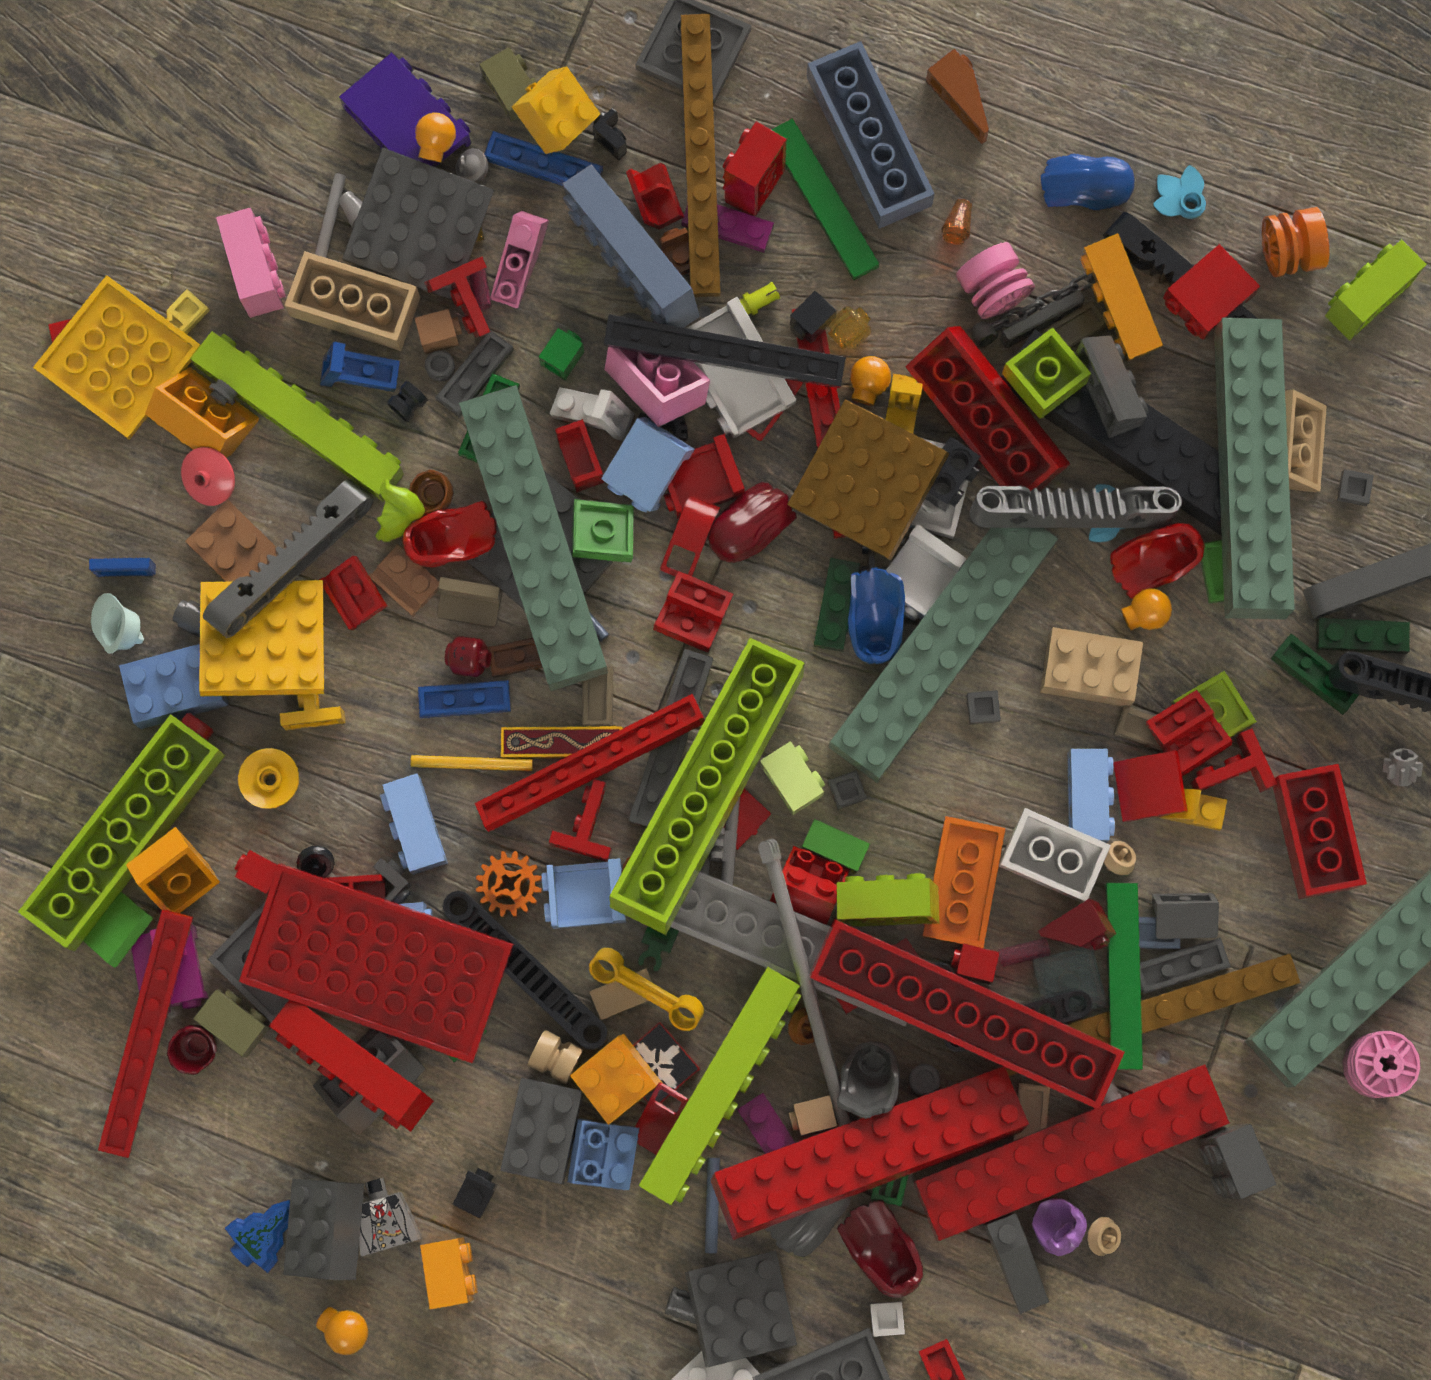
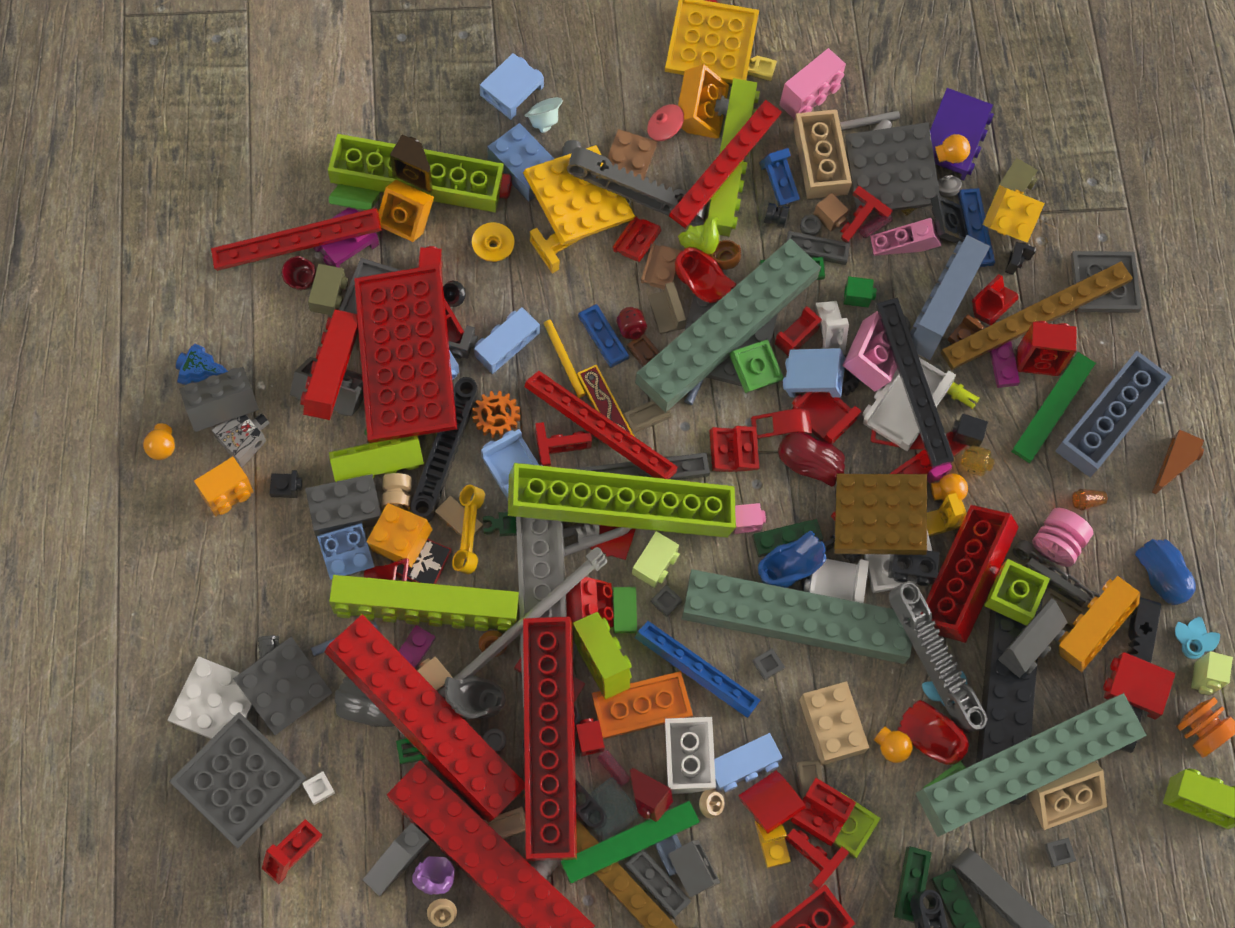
camera: 55 degrees right, 10 degrees down
(52, 648) = (511, 85): none -> light blue panel
(120, 834) = (411, 163): none -> dark brown slope
(122, 567) = (583, 101): blue tile -> none
(311, 430) = (725, 164): none -> red plate
(499, 1064) = (376, 458): none -> lime brick
(523, 192) = (949, 219): none -> black plate
(793, 637) = (749, 518): none -> bright pink brick
(844, 391) = (938, 472): none -> dark pink tile
(882, 1249) = (364, 762): dark red hair -> none
(950, 794) = (697, 669): none -> blue plate
(1235, 202) = (1211, 673): none -> yellowish green brick

